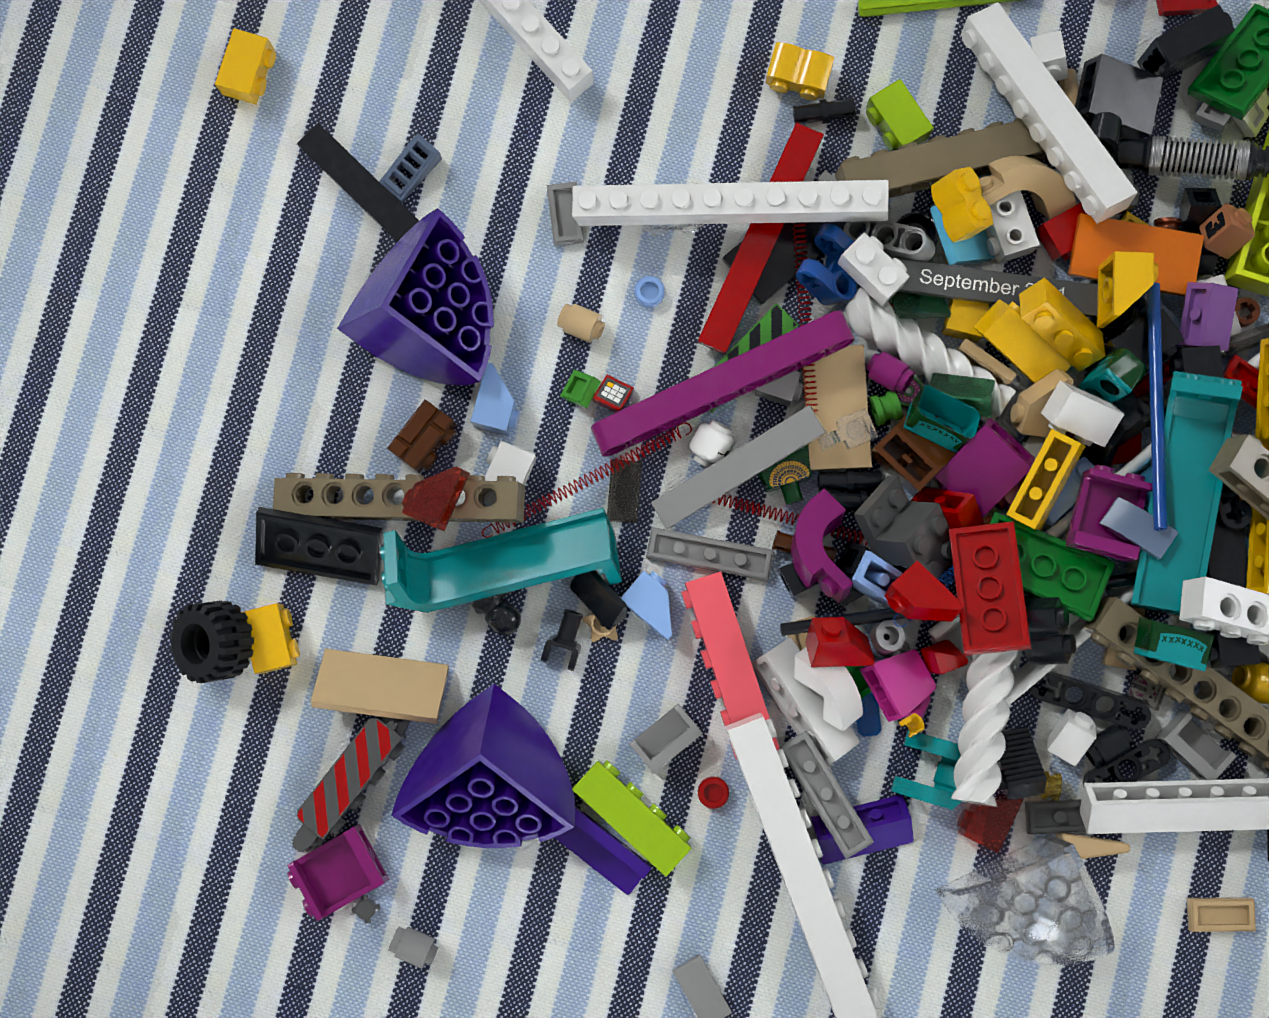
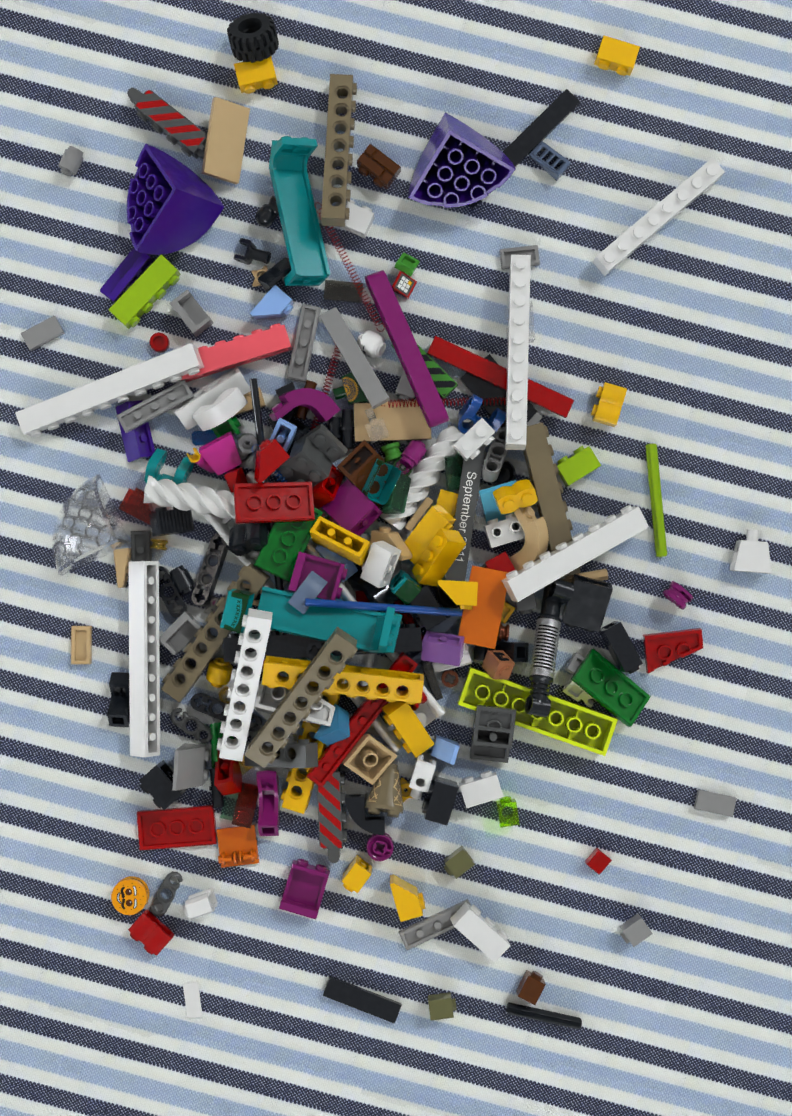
camera: 85 degrees right, 5 degrees up
(318, 546) = (311, 101): black tile -> none
(337, 873) = (115, 116): magenta panel -> none
(366, 909) = (94, 134): dark grey piece -> none
(435, 497) = (333, 168): clear red slope -> none
(494, 405) = (398, 211): light blue slope -> none
(581, 322) = (449, 265): tan brick -> none
(649, 291) = (468, 309): light blue tile -> none
(824, 111) = (582, 419): black pin -> none
(837, 644) = (243, 413): red slope -> none
(1051, 52) = (614, 561): white brick -> none
(1072, 736) = (187, 557): white brick -> none

